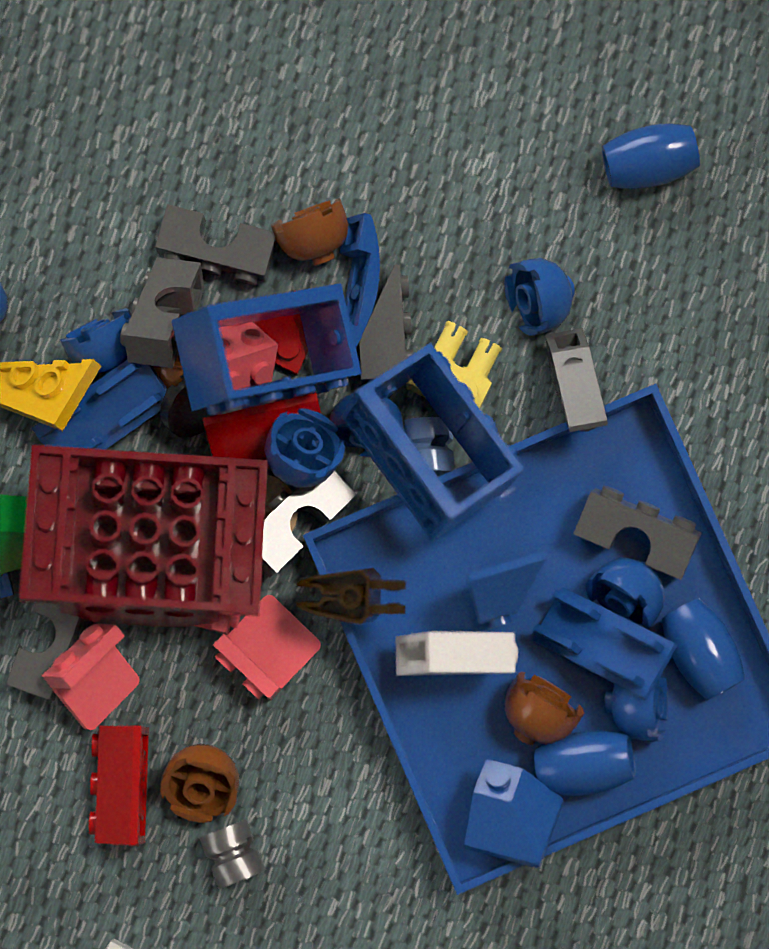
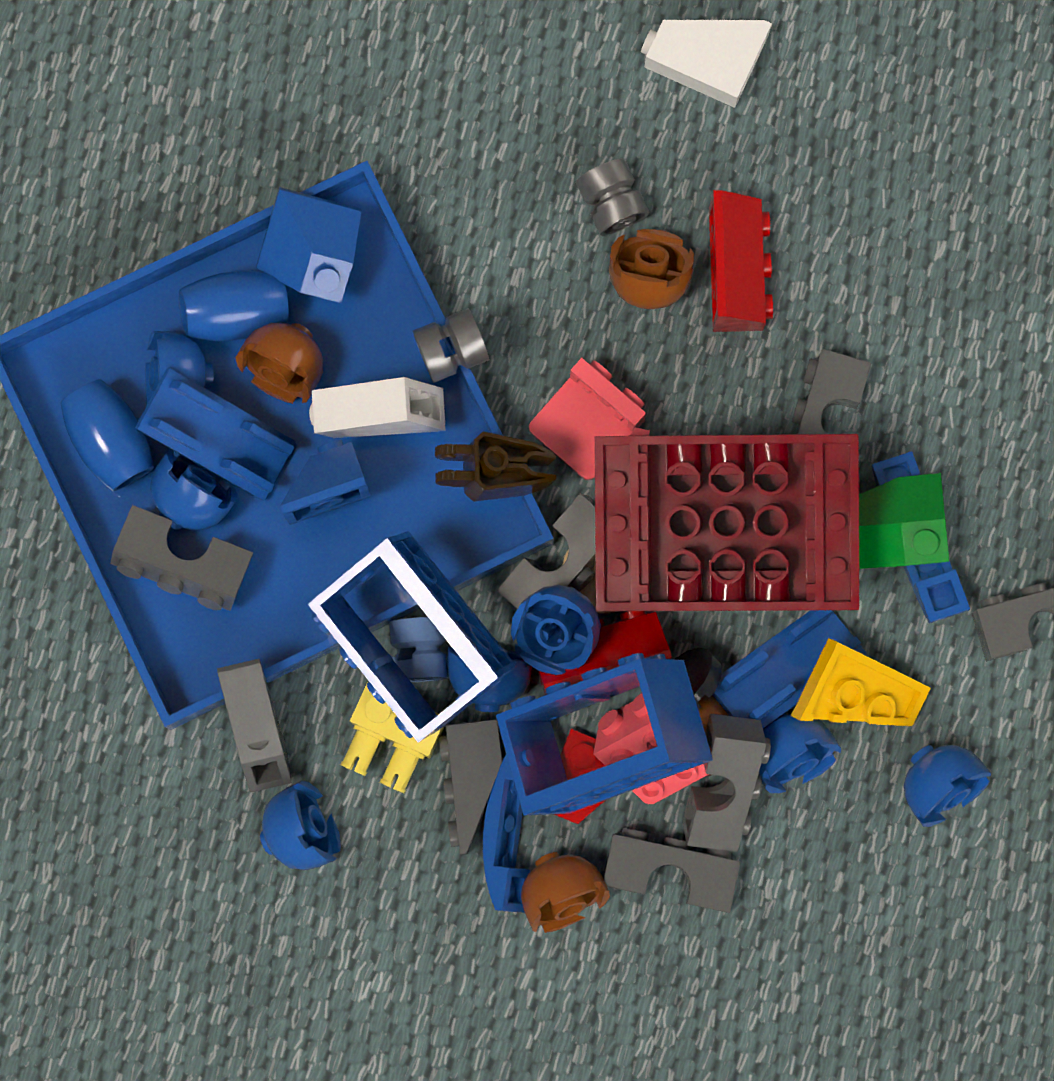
camera: 175 degrees right, 0 degrees up
(92, 675) = (776, 377): coral bracket -> none
(372, 714) = (464, 338): none -> flat silver wheel
(650, 156) = (176, 997): blue piece -> none

